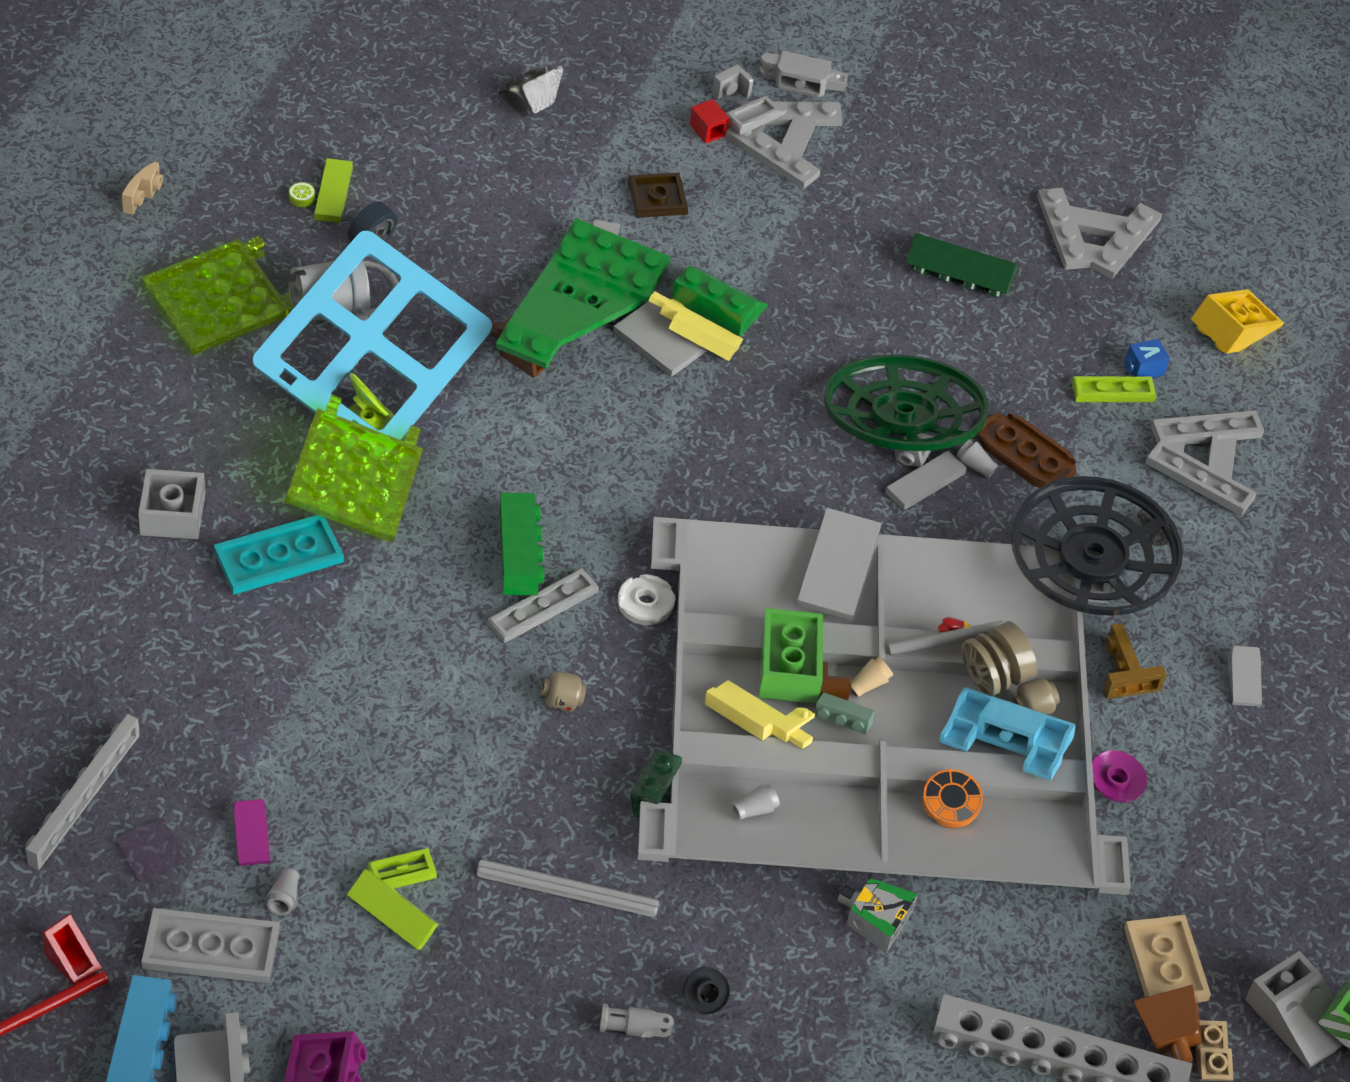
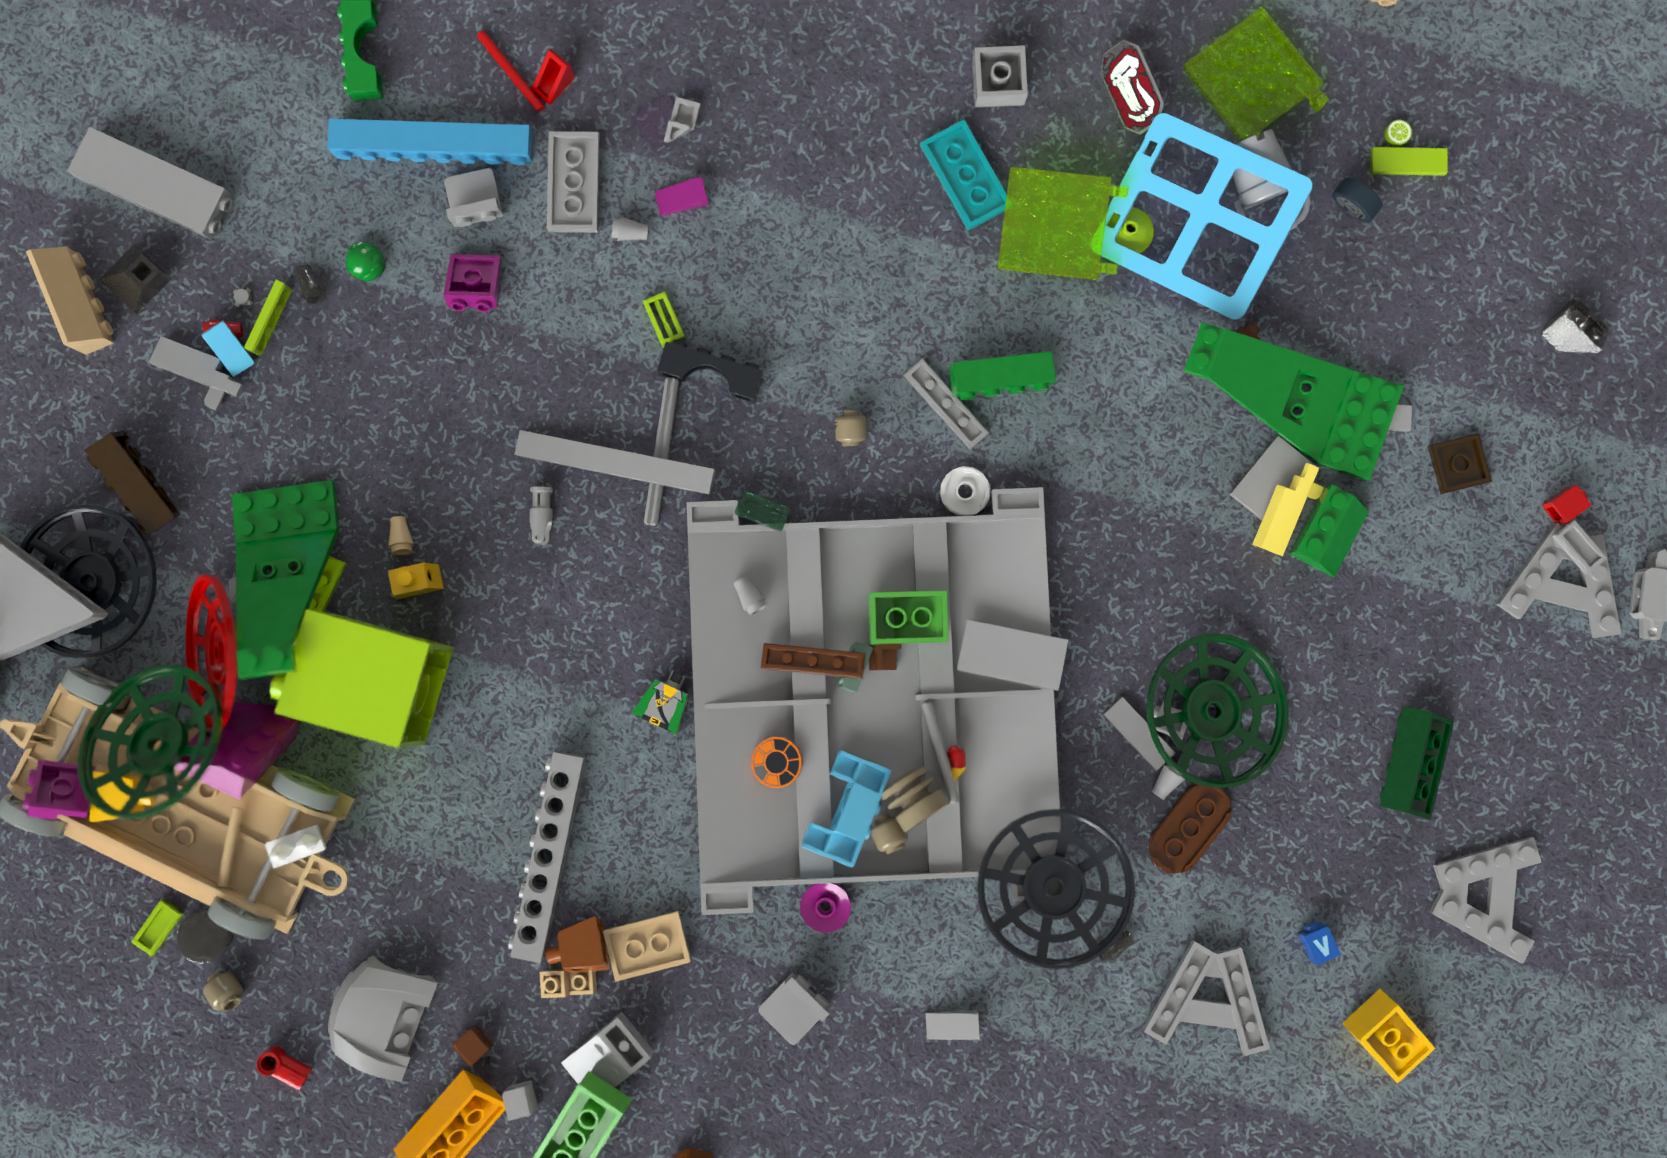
camera: 90 degrees right, 35 degrees up
(88, 784) = (694, 56): light grey plate -> none
(154, 820) = (683, 119): none -> light grey slope
(209, 392) = (1131, 86): none -> shield
(365, 397) = (1146, 223): lime dish -> none
(392, 909) = (622, 315): lime tile -> none
(490, 794) = (680, 362): none -> black arch
(577, 935) = (615, 462): none -> light grey tile
(706, 990) = (572, 568): black plate -> none
(731, 80) = (1626, 520): light grey bracket -> none
(758, 716) = (842, 592): light yellow piece -> none
(836, 747) = (813, 661): none -> reddish brown tile
(871, 676) = (900, 690): tan cone -> none
(1113, 389) = (1281, 911): lime tile -> none
(1128, 675) = (944, 917): pearl gold bracket -> none
(1231, 818) = (794, 1008): none -> light grey bracket

